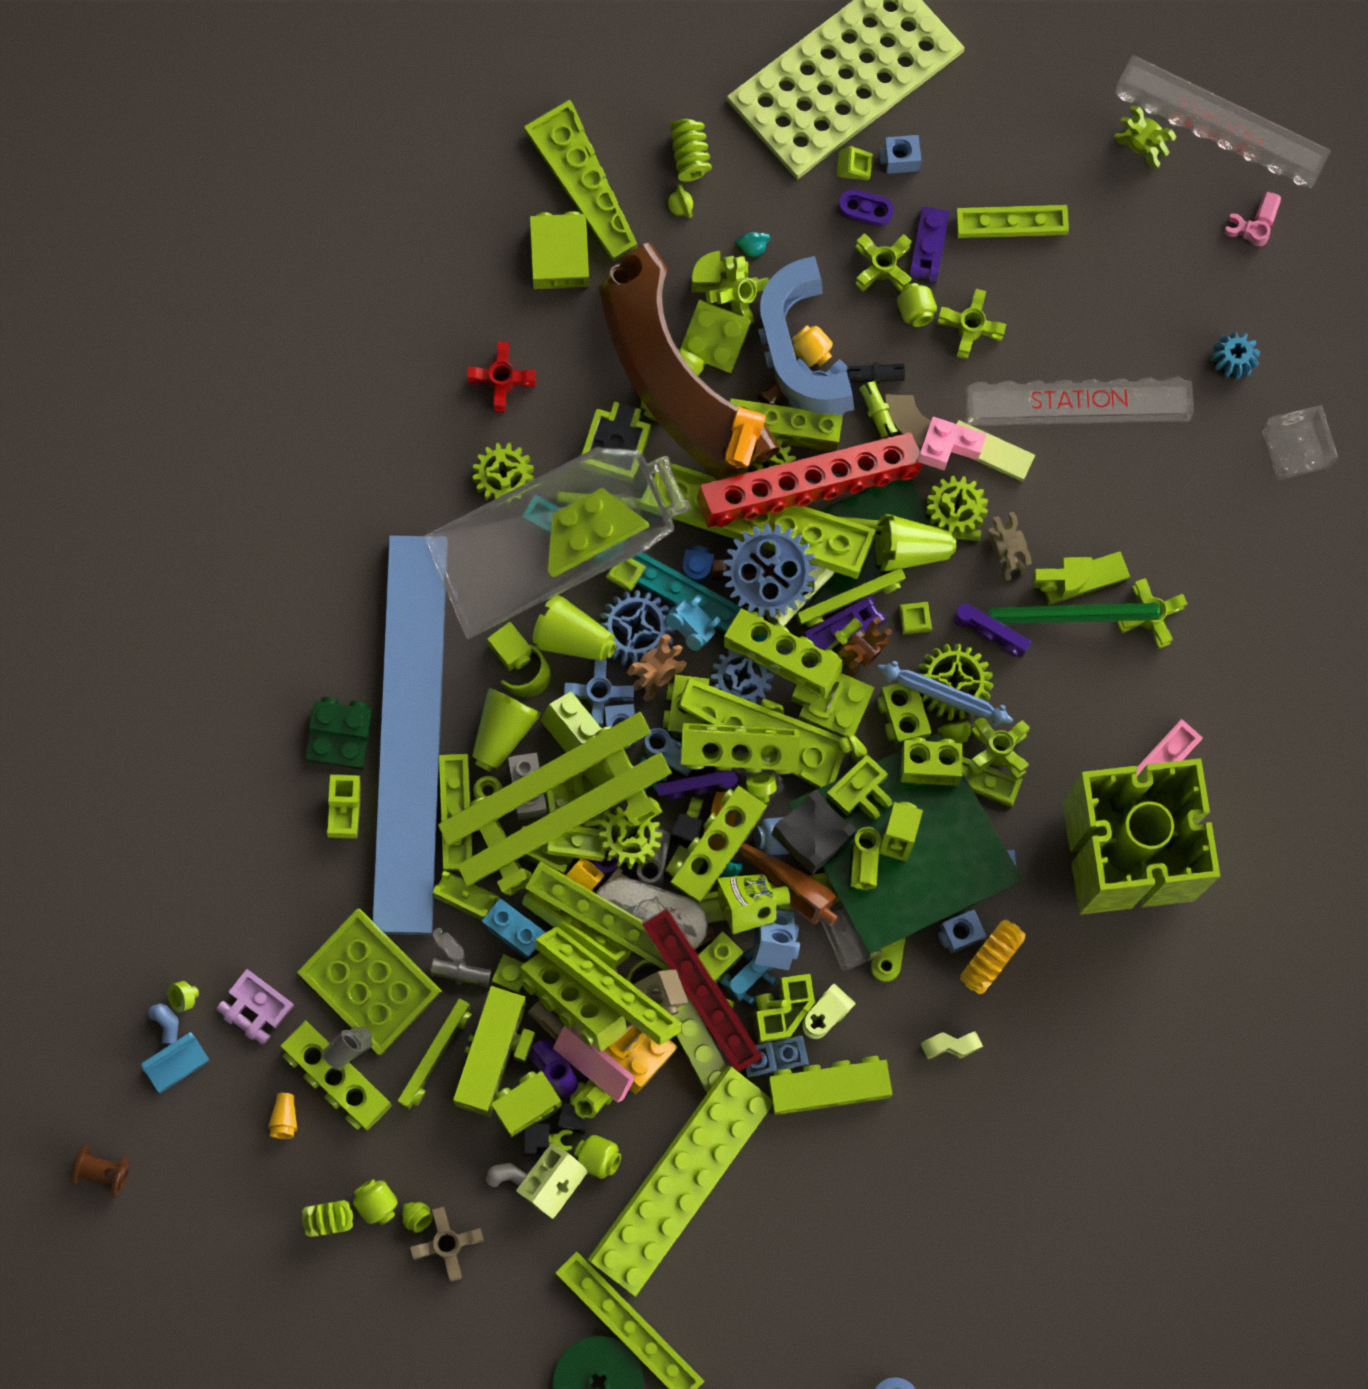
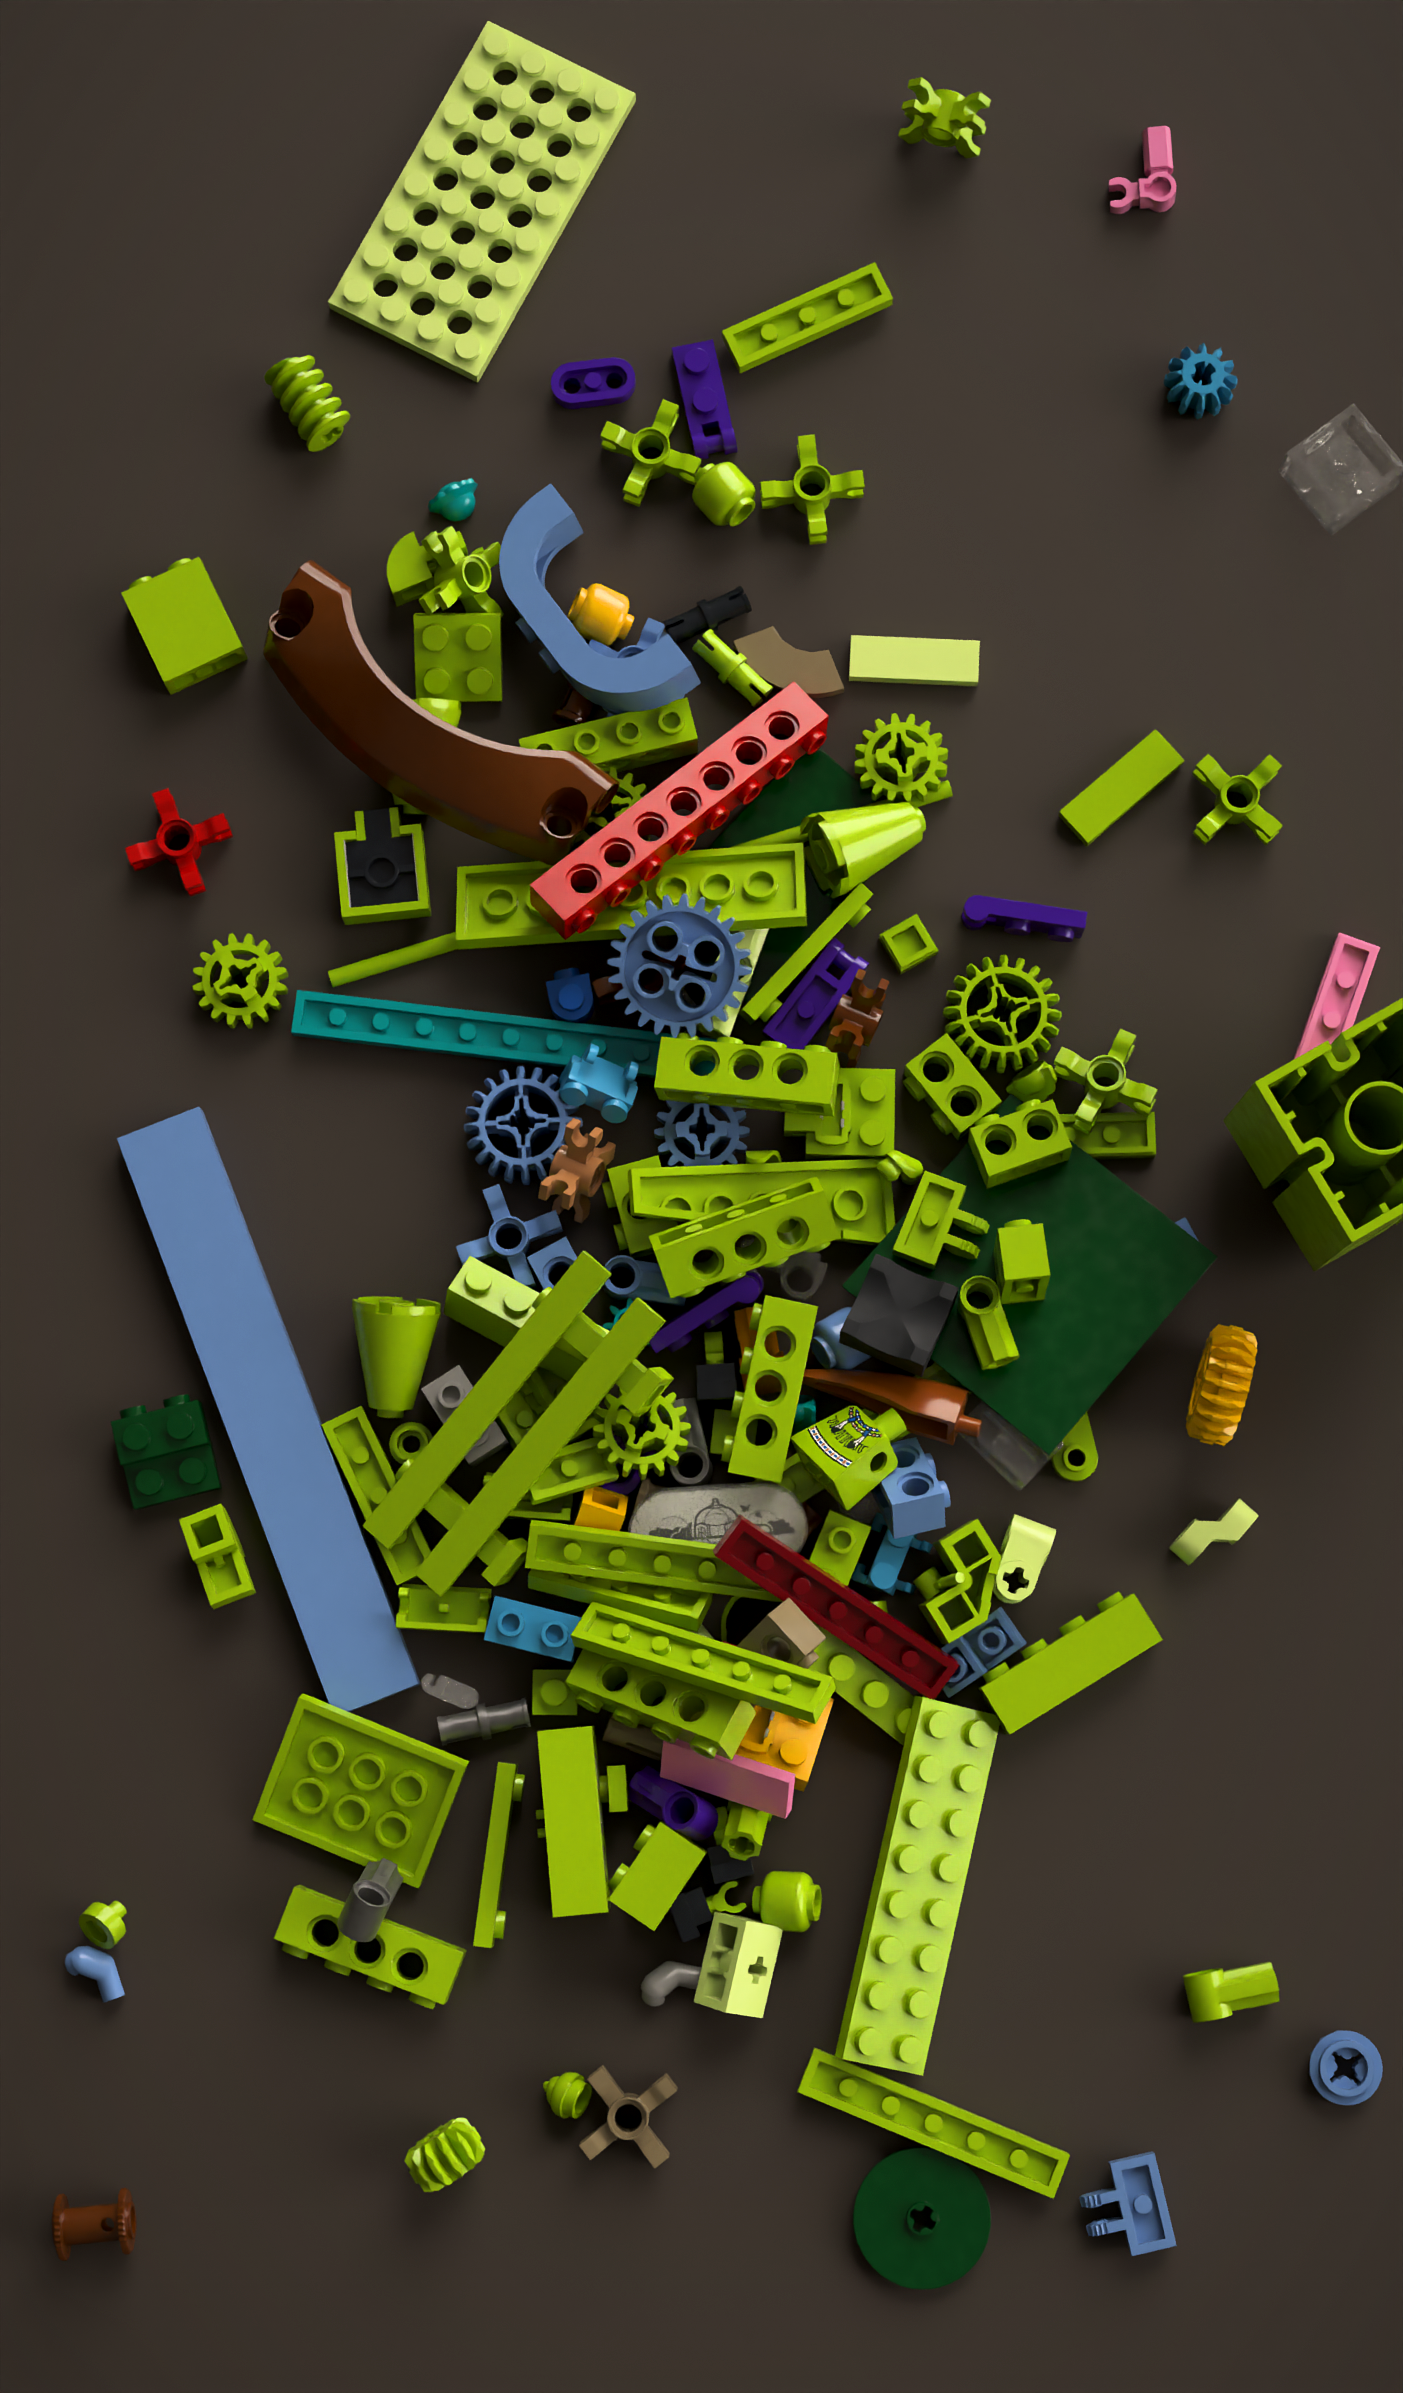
camera: 15 degrees left, 5 degrees up
(175, 1062) = (135, 2022): dark azure panel -> none
(259, 998) = (215, 1880): lavender plate -> none
(283, 1118) = (321, 2035): yellow cone -> none
(375, 1202) = (501, 2100): lime head -> none
(500, 552) = (350, 1043): clear windscreen -> none
(510, 647) = (356, 1227): lime brick -> none
(537, 685) = (419, 1260): lime helmet -> none
(572, 632) = (436, 1170): lime cone -> none
(573, 161) = (147, 485): lime wing -> none
(589, 529) = (398, 1013): lime wing -> none
(626, 574) = (474, 1051): lime tile -> none
(680, 202) = (327, 483): lime piece -> none
(746, 429) = (561, 777): light orange piece -> none
(761, 786) = (797, 1280): lime tile -> none
(836, 1324) = (1217, 1993): none -> lime piece
(843, 635) = (821, 1012): lime piece -> none
(854, 164) = (549, 326): lime slope -> none
(909, 146) = (612, 268): medium blue brick -> none
(945, 693) = (998, 1037): medium blue wheel -> none
(948, 437) = (849, 666): bright pink plate -> none
(972, 925) = (1177, 1355): medium blue brick -> none
(1009, 546) = (1000, 787): dark tan pin -> none
(1070, 577) = (1102, 796): lime brick -> none
(1075, 613) = (1132, 845): green axle -> none
(1079, 402) = (1009, 539): clear brick -> none
(1222, 122) = (1043, 52): clear brick -> none

